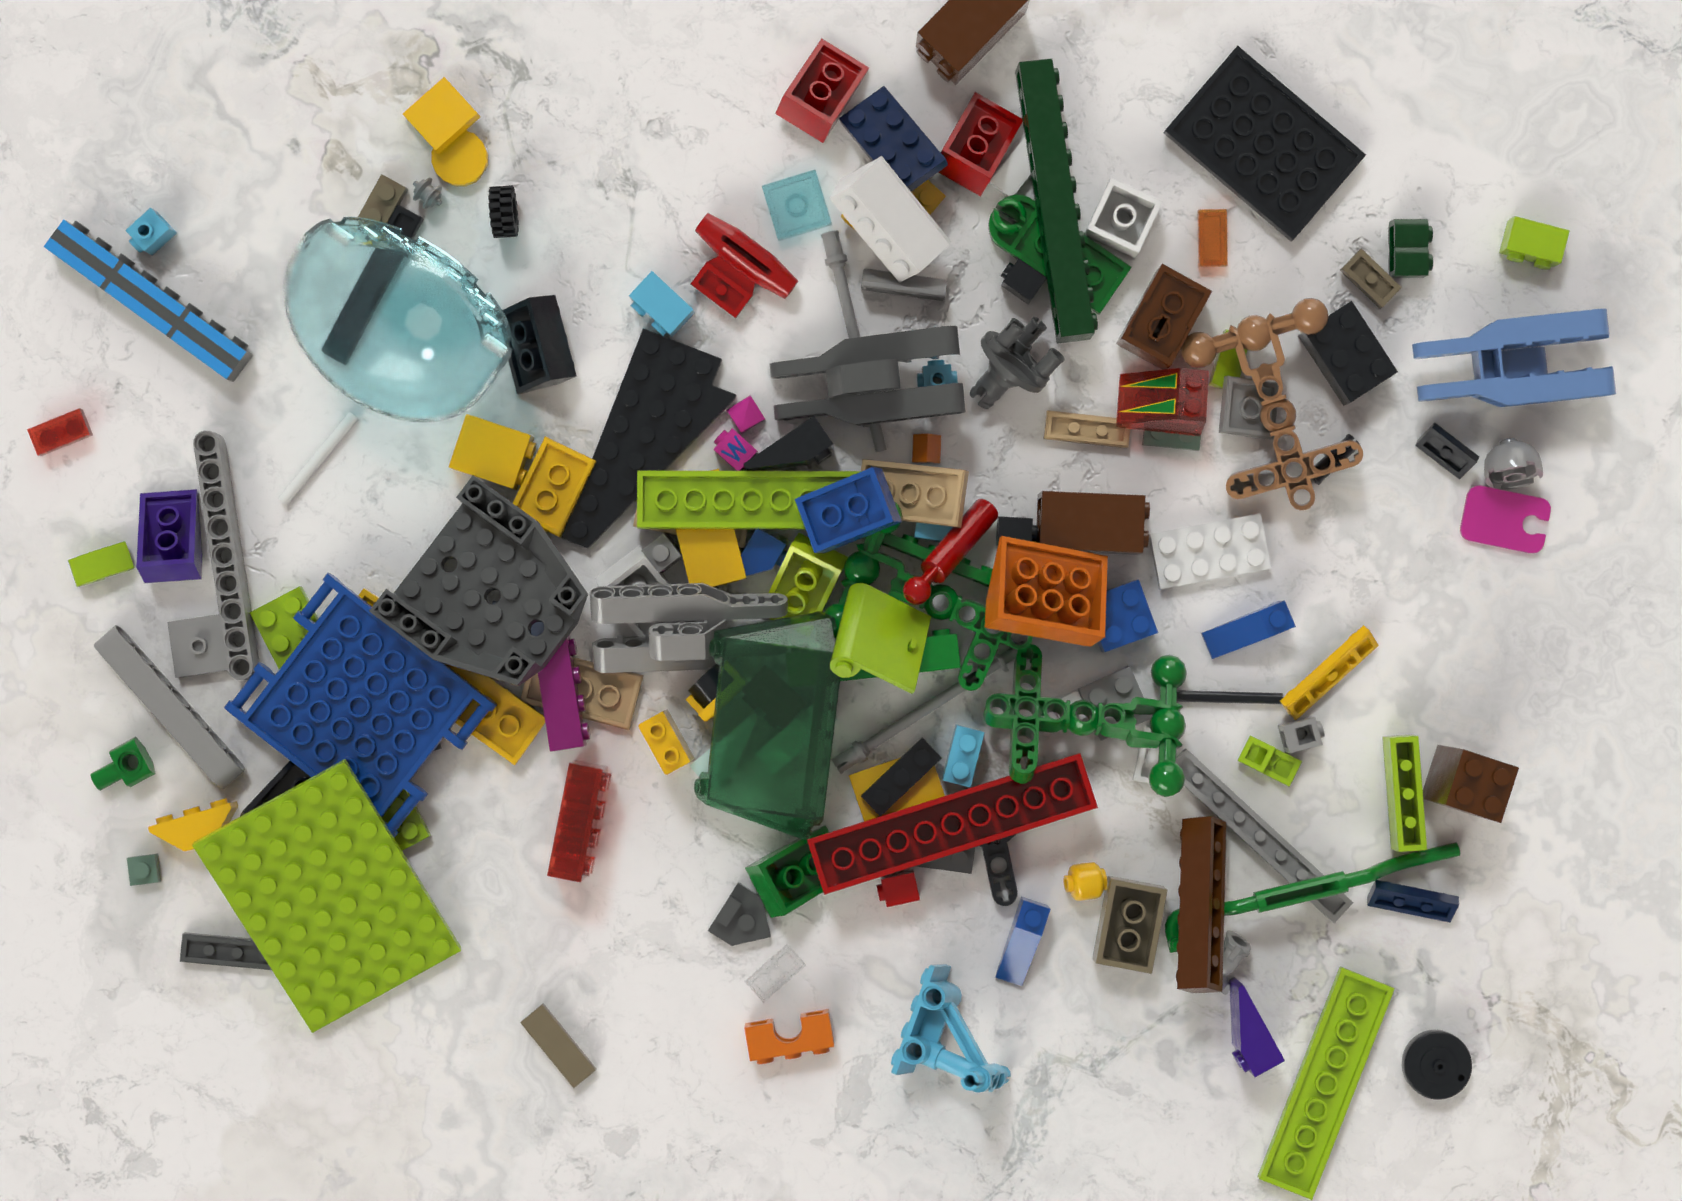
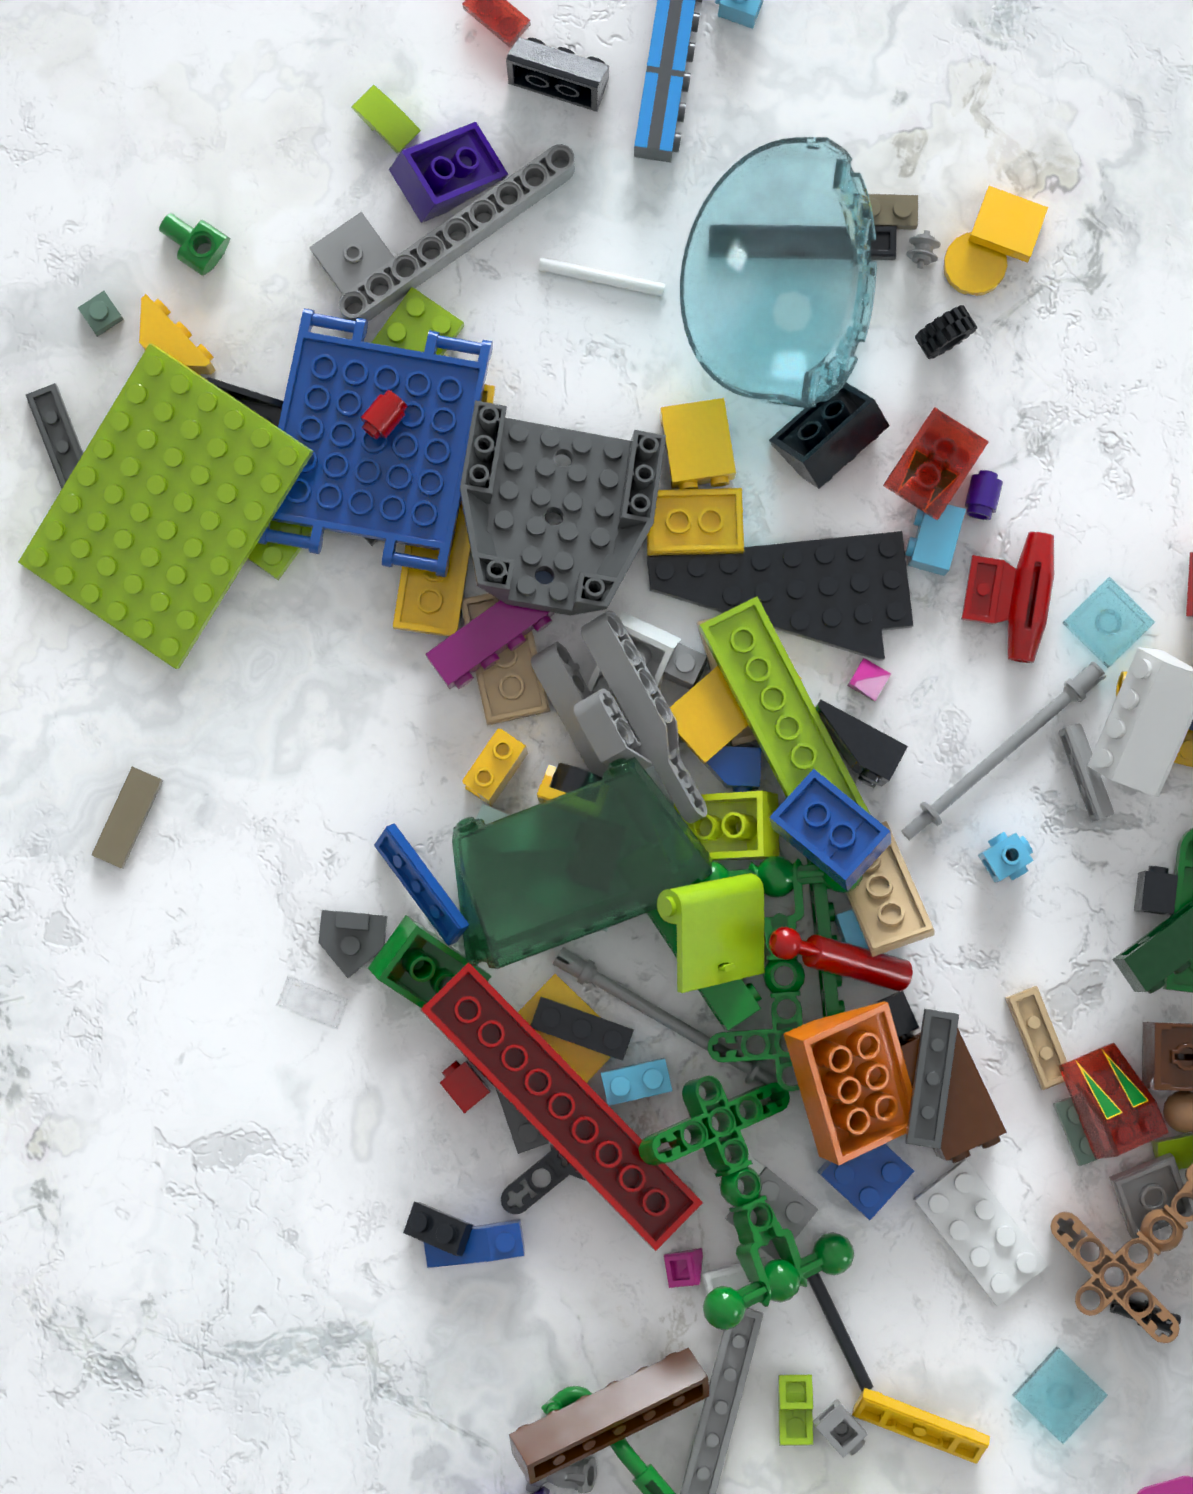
camera: 60 degrees right, 5 degrees down
(134, 408) = (557, 73): none -> black slope
(169, 707) = (276, 256): light grey beam -> none
(344, 689) = (383, 415): none -> red brick
(578, 821) = (368, 719): clear red brick -> none
(604, 276) = (935, 463): none -> clear red slope
(647, 250) = (983, 495): none -> dark purple brick
(727, 844) = (421, 884): none -> blue tile
(734, 449) = (828, 683): dark pink brick -> none
(766, 1043) = (234, 1029): orange arch -> none
(871, 366) = (988, 779): dark grey beam -> none
(923, 1034) = (332, 1188): medium azure plate -> none
(926, 448) = (932, 881): orange slope -> none
(997, 963) = (438, 1229): none -> black plate
(1011, 362) = (1068, 922): dark grey piece -> none
(1076, 531) = (932, 1078): none -> dark grey plate
(1085, 881) = (570, 1278): yellow head -> none
(1121, 790) = (684, 1267): none -> dark pink slope
(1129, 924) = (549, 1349): dark tan brick -> none
(1248, 629) = (921, 1315): blue slope -> none
(1360, 555) = (1060, 1395): none -> clear light blue tile

